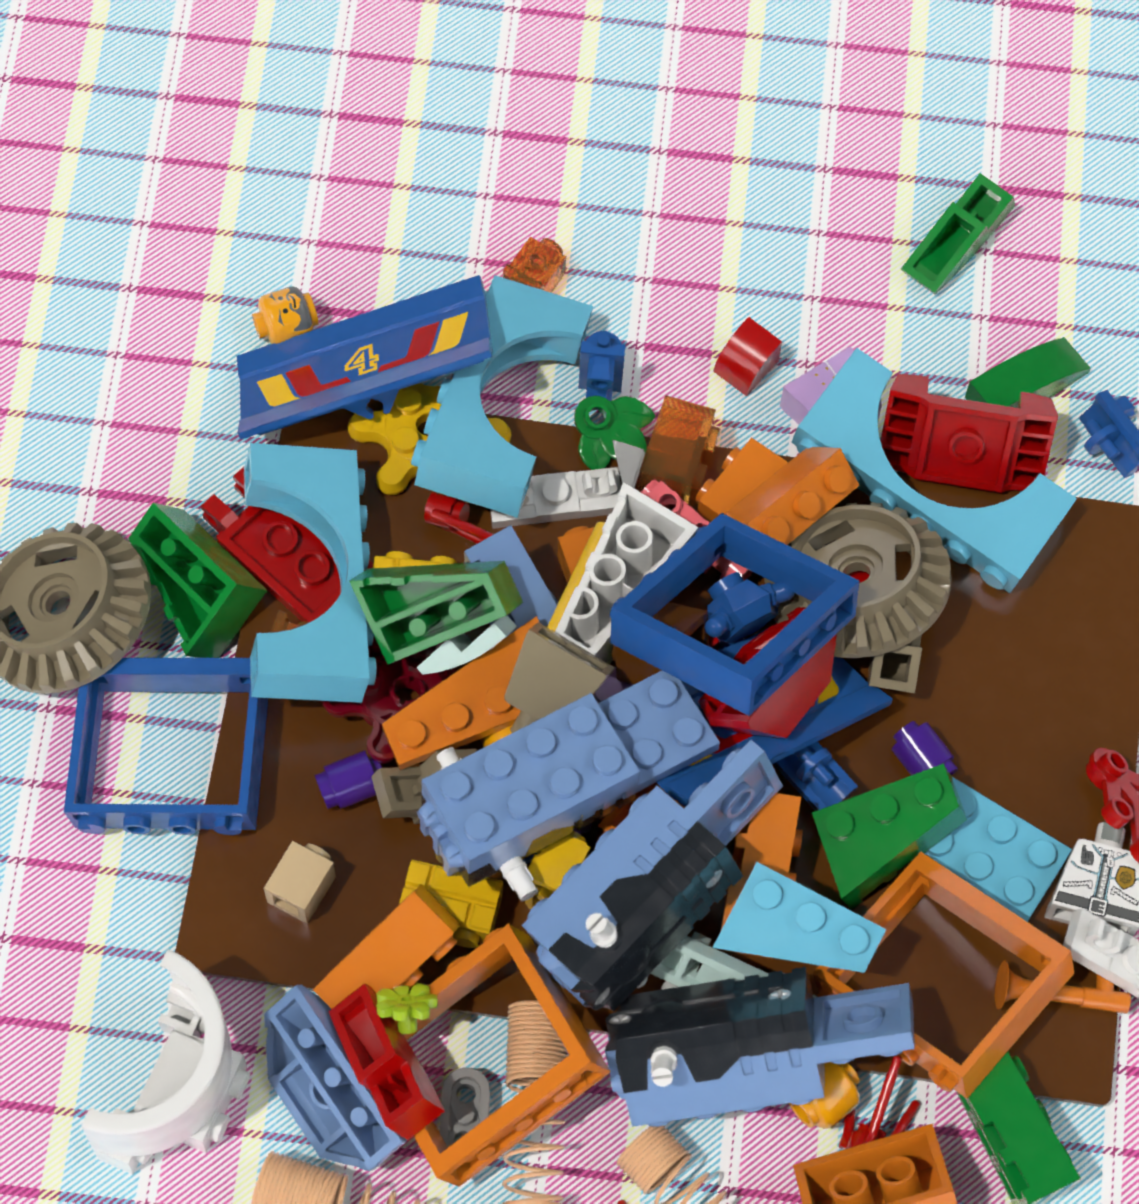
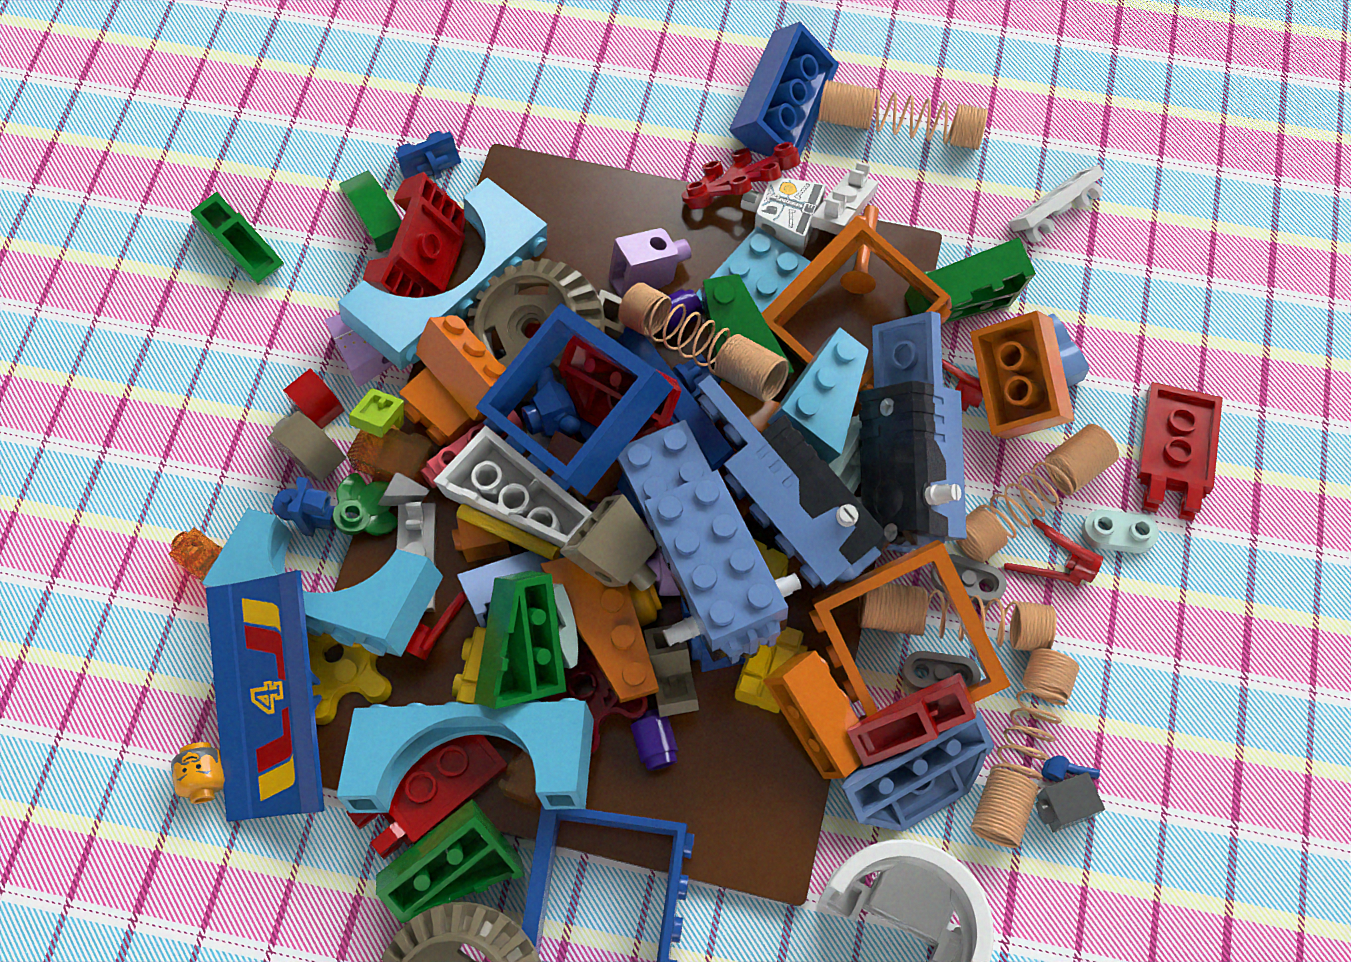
camera: 80 degrees left, 0 degrees up
(300, 881) = (741, 786): tan brick -> none
(406, 1005) = (870, 695): lime plant -> none
(593, 1150) = (971, 575): none -> light grey plate
(682, 355) = (306, 446): none -> dark tan brick
(719, 418) = (377, 413): none -> lime bracket
(825, 809) = (738, 360): none -> light nougat piece
(985, 709) = (646, 259): none -> lavender torso

